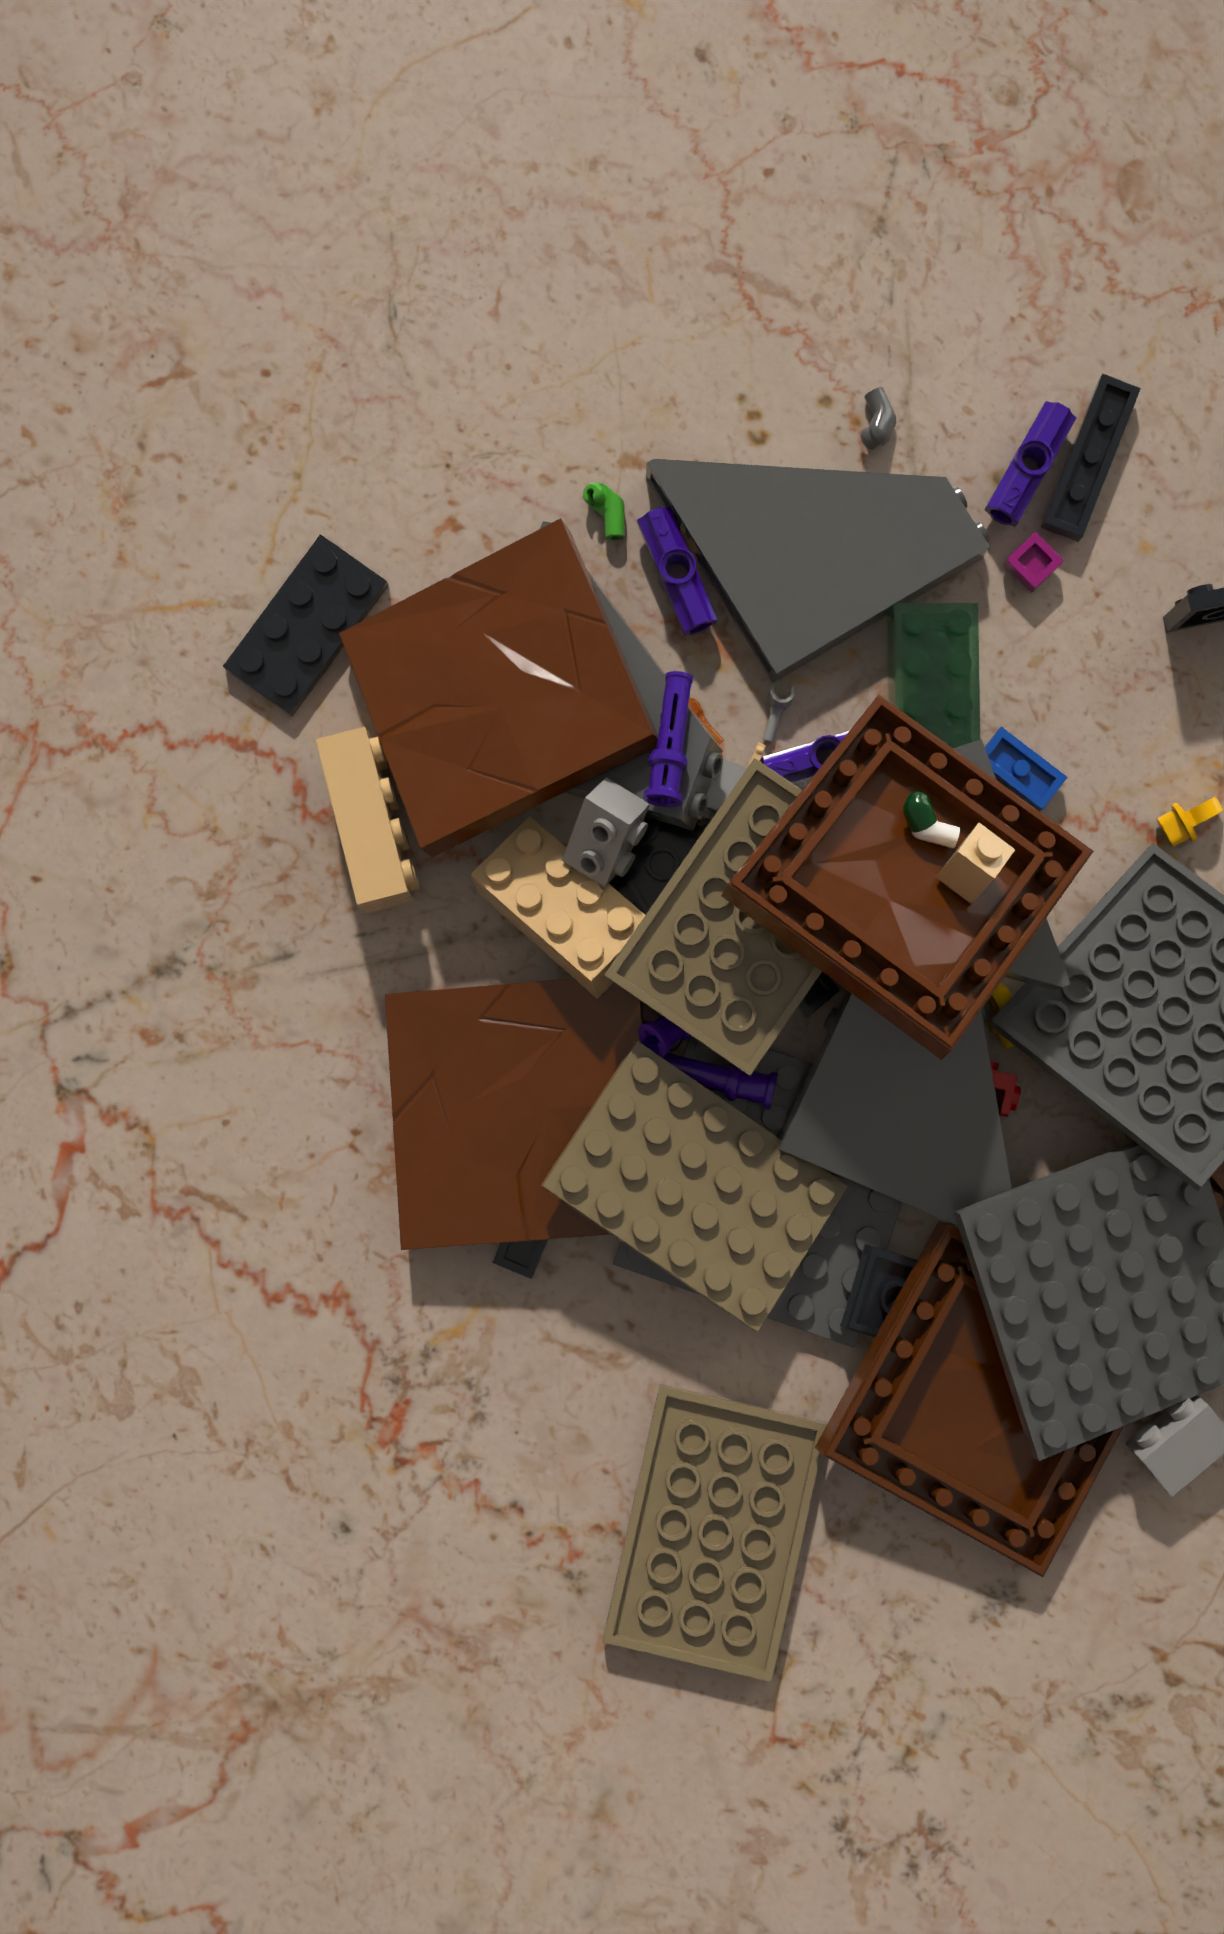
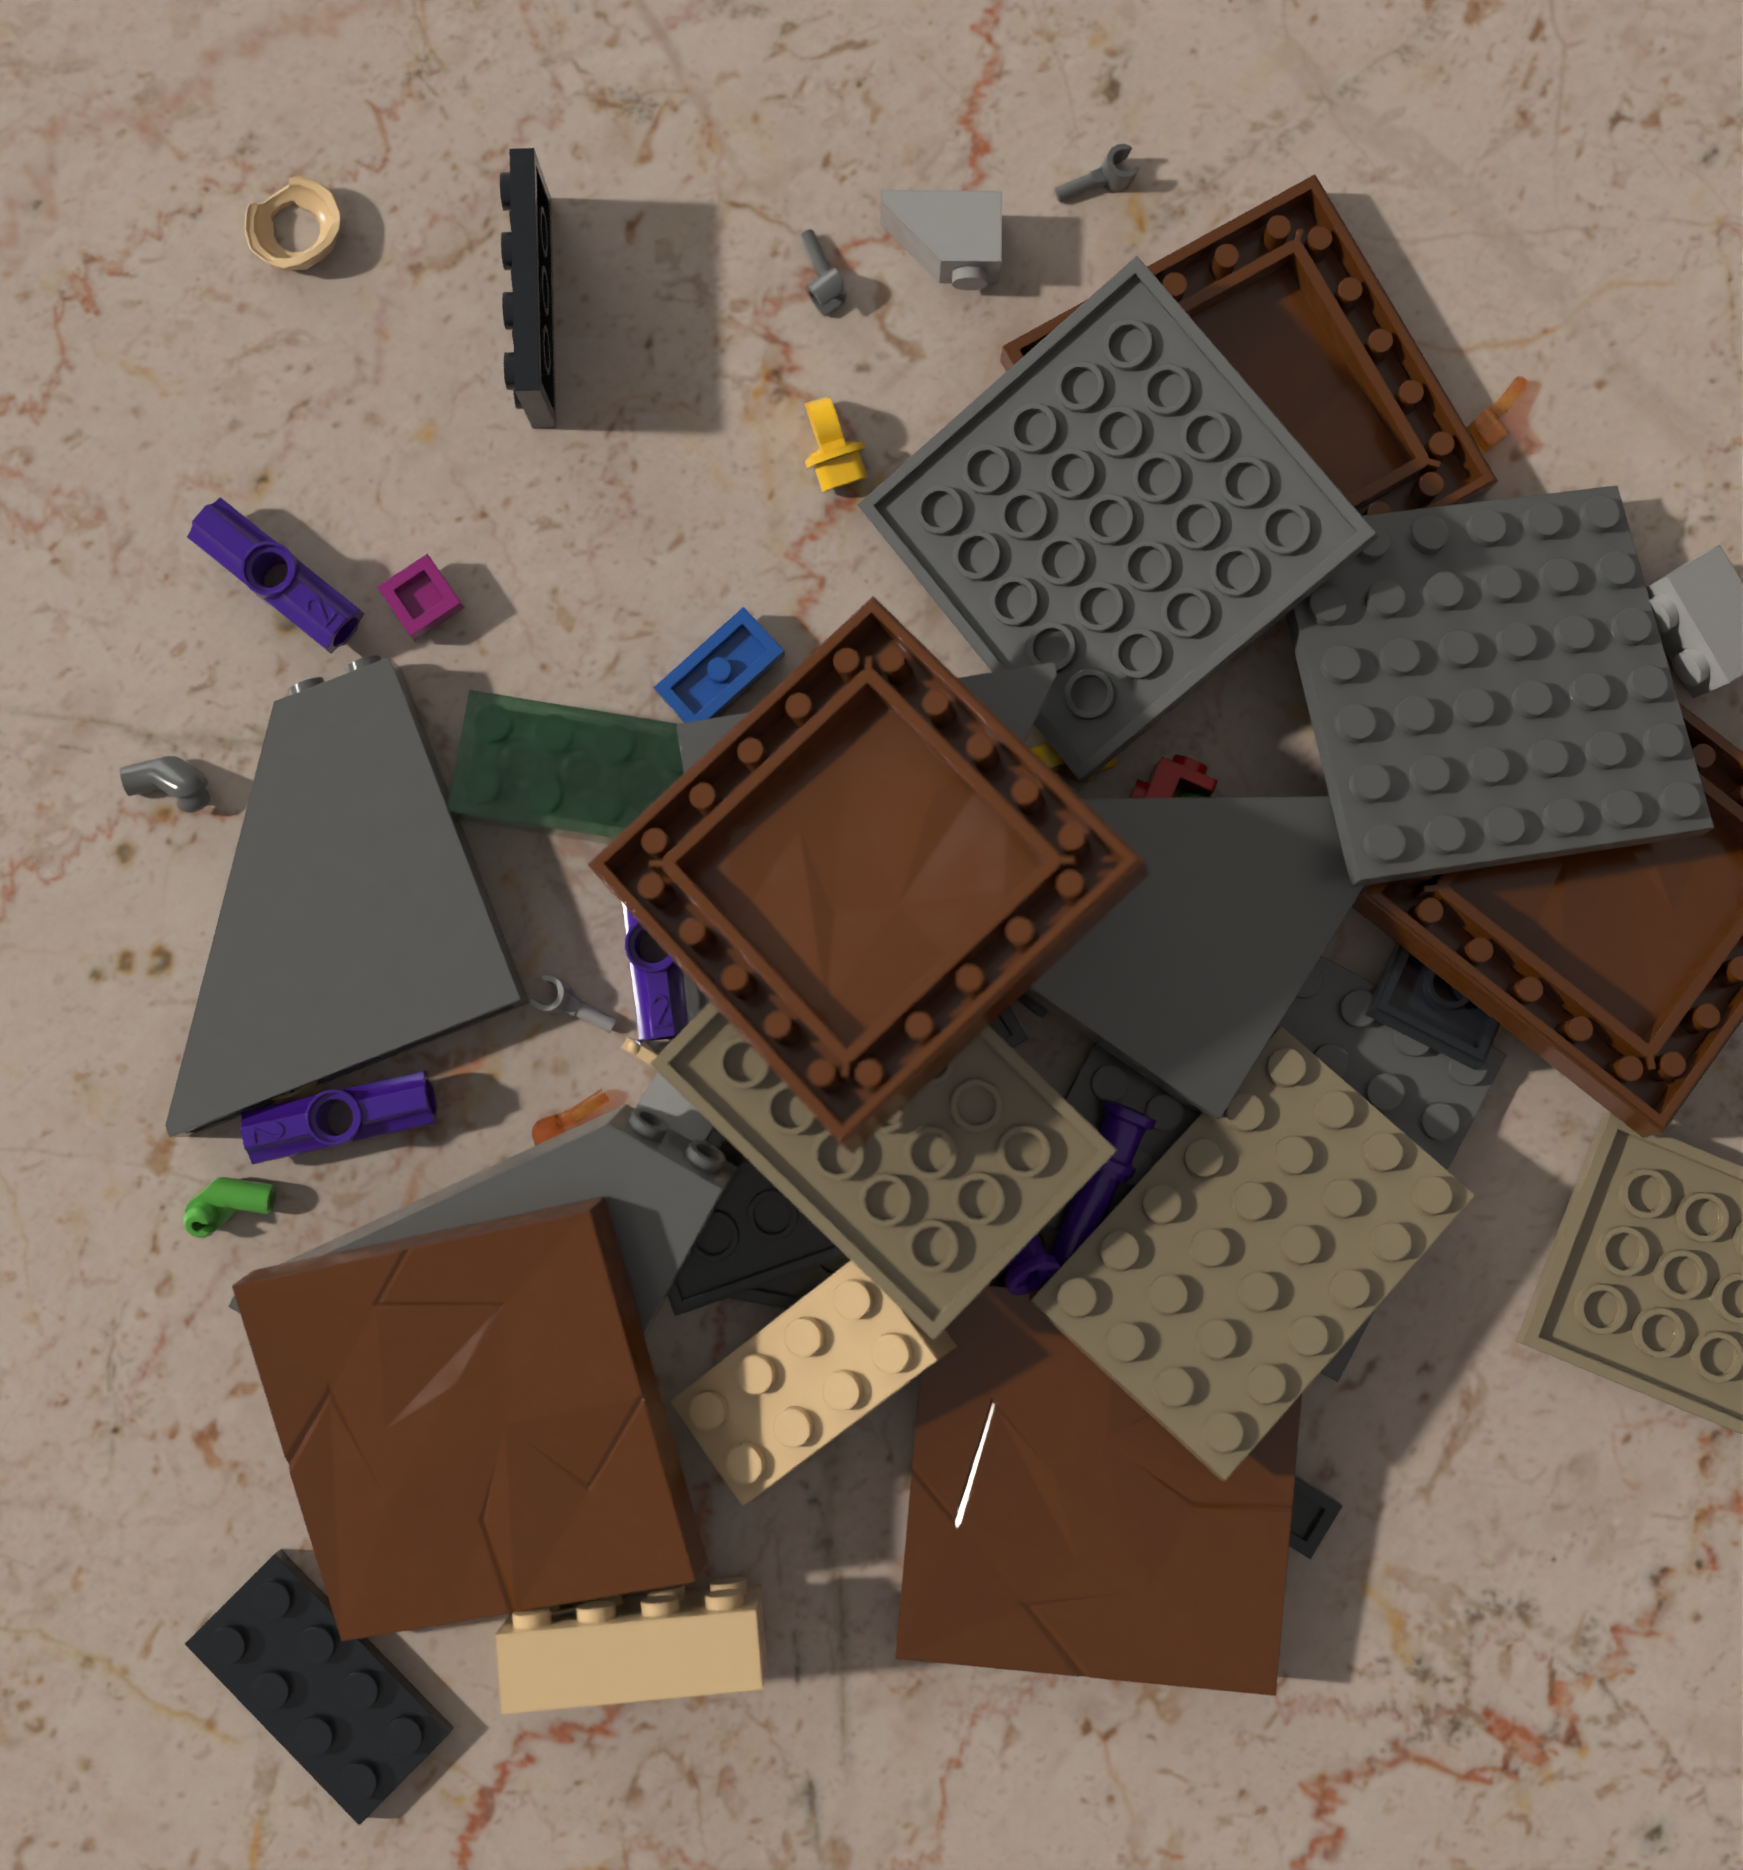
camera: 80 degrees left, 0 degrees up
(606, 832) = (720, 1298): light grey brick -> none
(665, 760) = (630, 1203): dark purple pin -> none
(924, 823) = (793, 833): arm -> none
(975, 863) = (867, 771): tan brick -> none
(1090, 457) = (282, 487): black plate -> none

